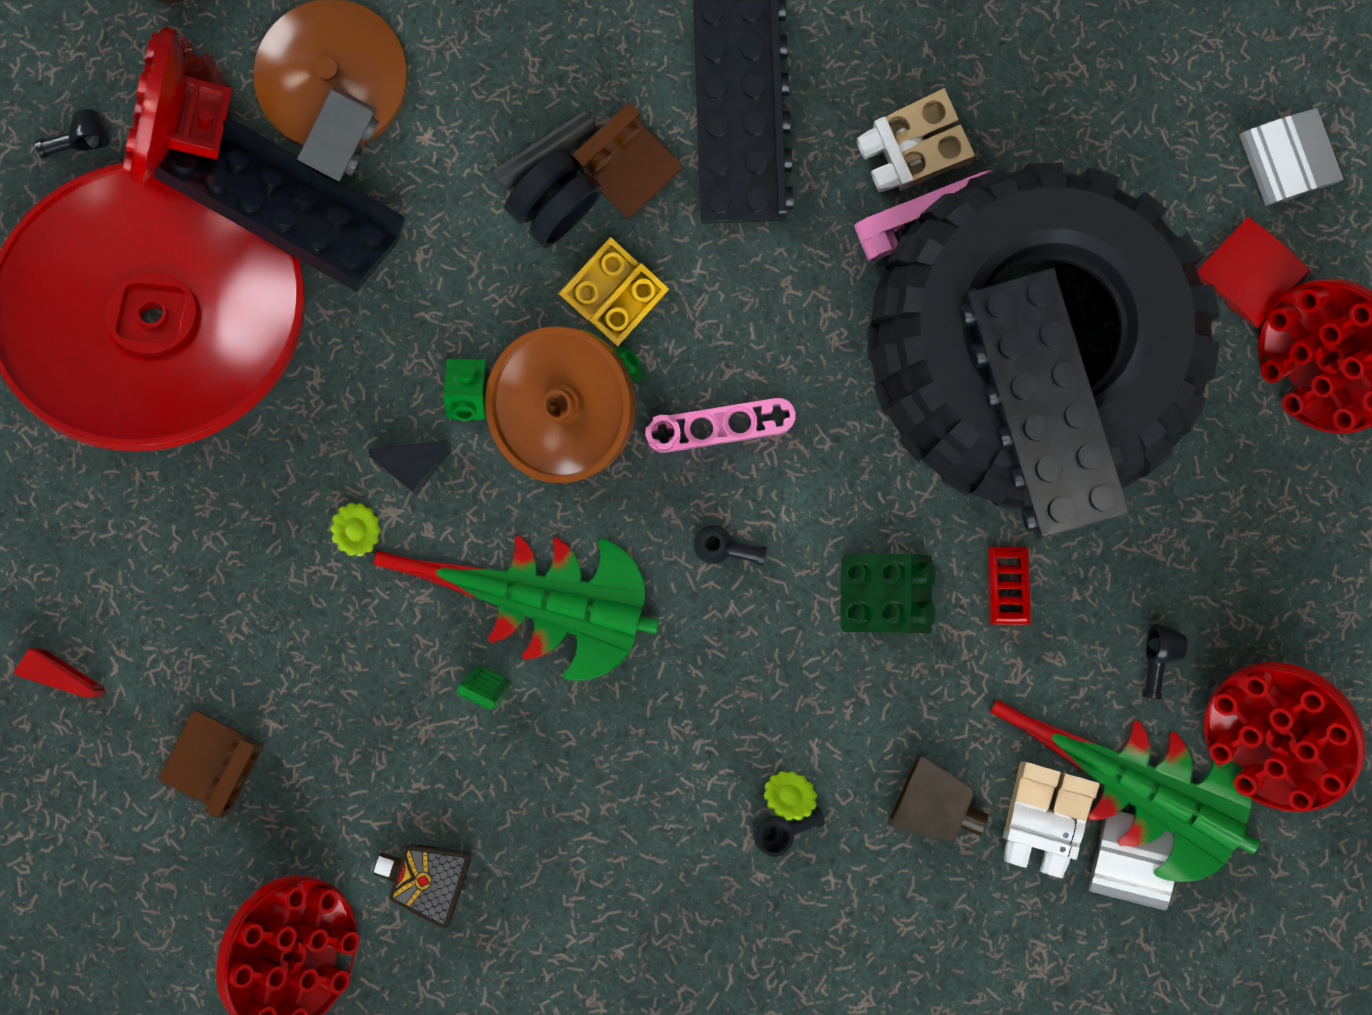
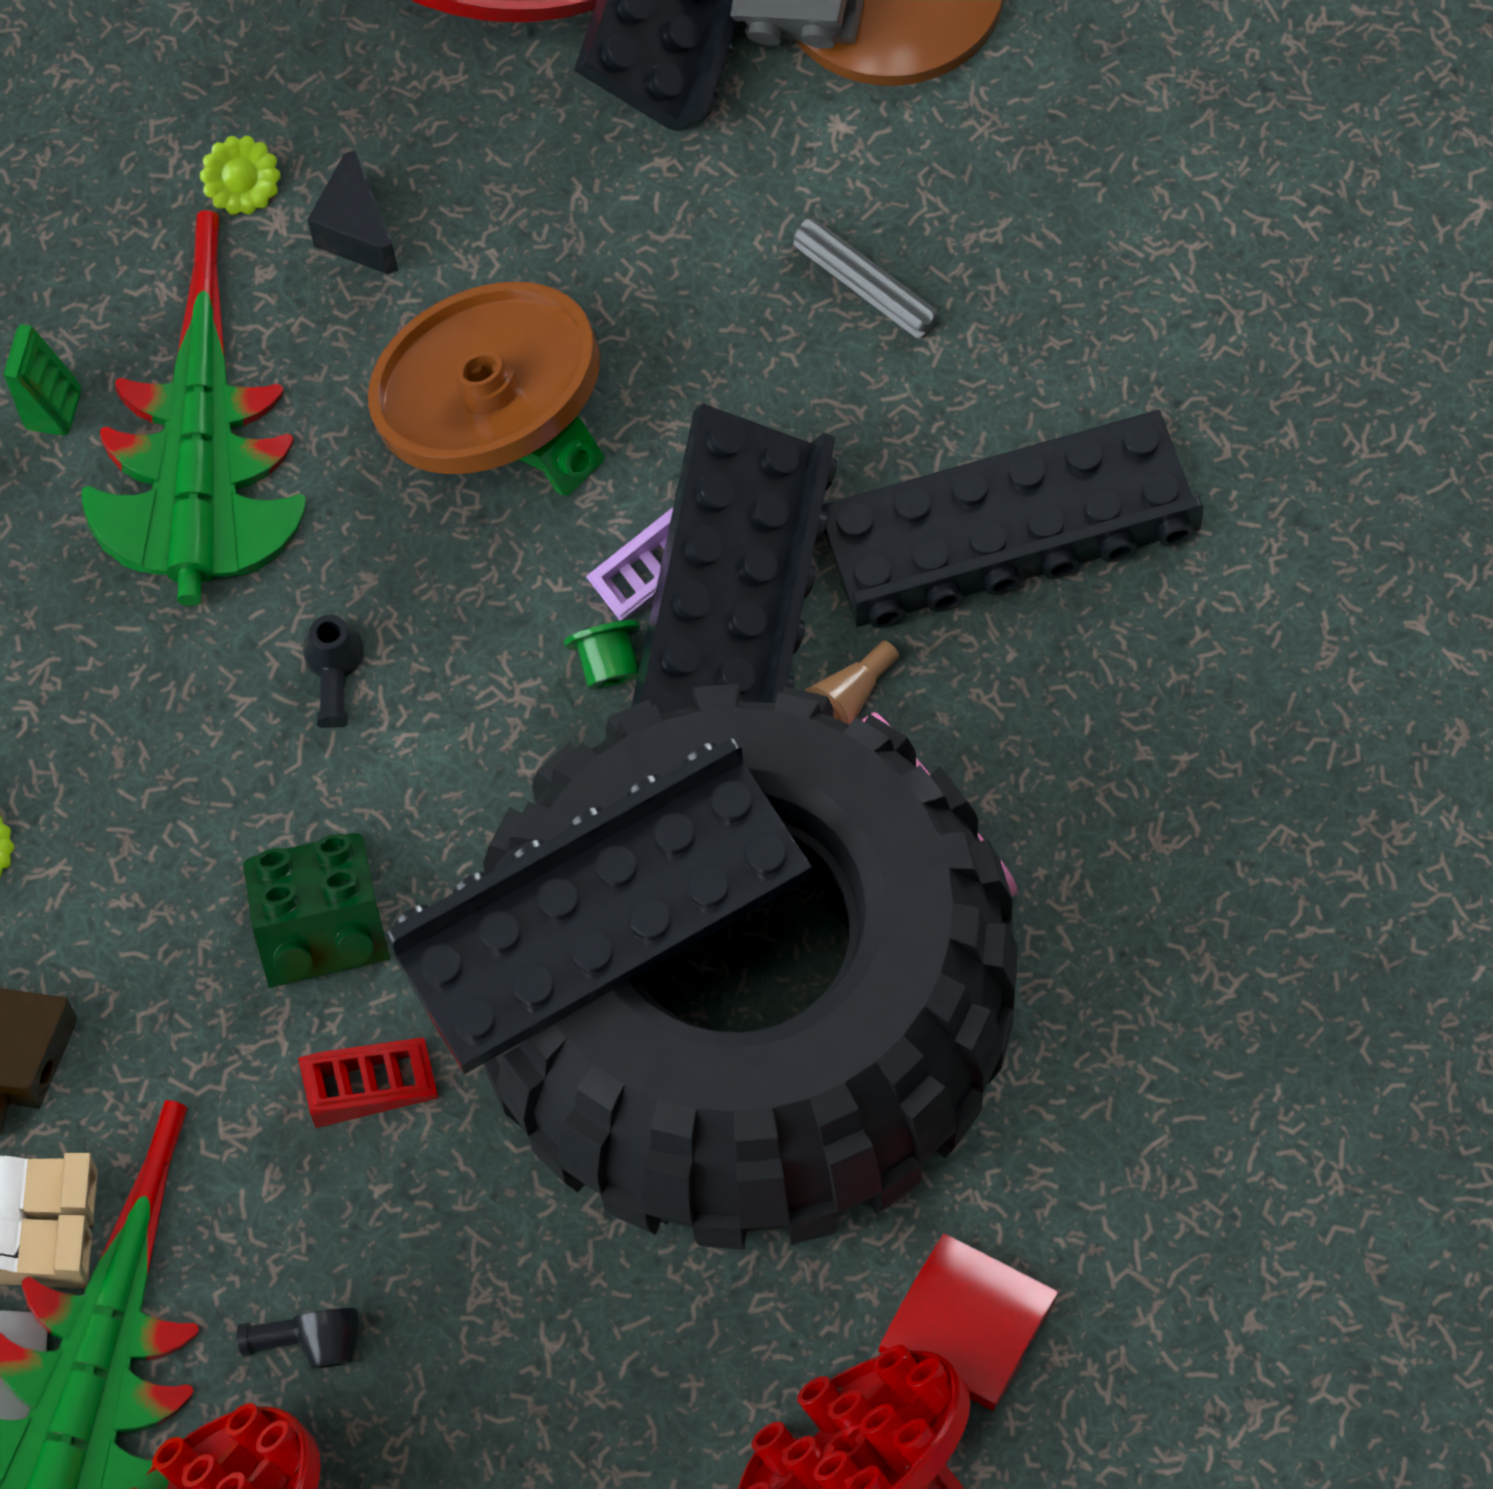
camera: 75 degrees right, 20 degrees down
(465, 389) = (479, 257): green bracket -> none
(553, 197) = (785, 287): black wheel -> none
(613, 291) = (657, 413): yellow slope -> none
(627, 161) = (878, 379): reddish brown bracket -> none
(692, 322) = (621, 561): none -> lavender slope
(719, 420) = (517, 612): bright pink beam -> none
(753, 285) = (735, 561): none -> black bracket
(769, 375) = (606, 653): none -> green piece
(835, 240) = (853, 685): none -> medium nougat cone
(917, 143) = (1027, 770): tan hips -> none
(1291, 156) = (1179, 1340): slope -> none

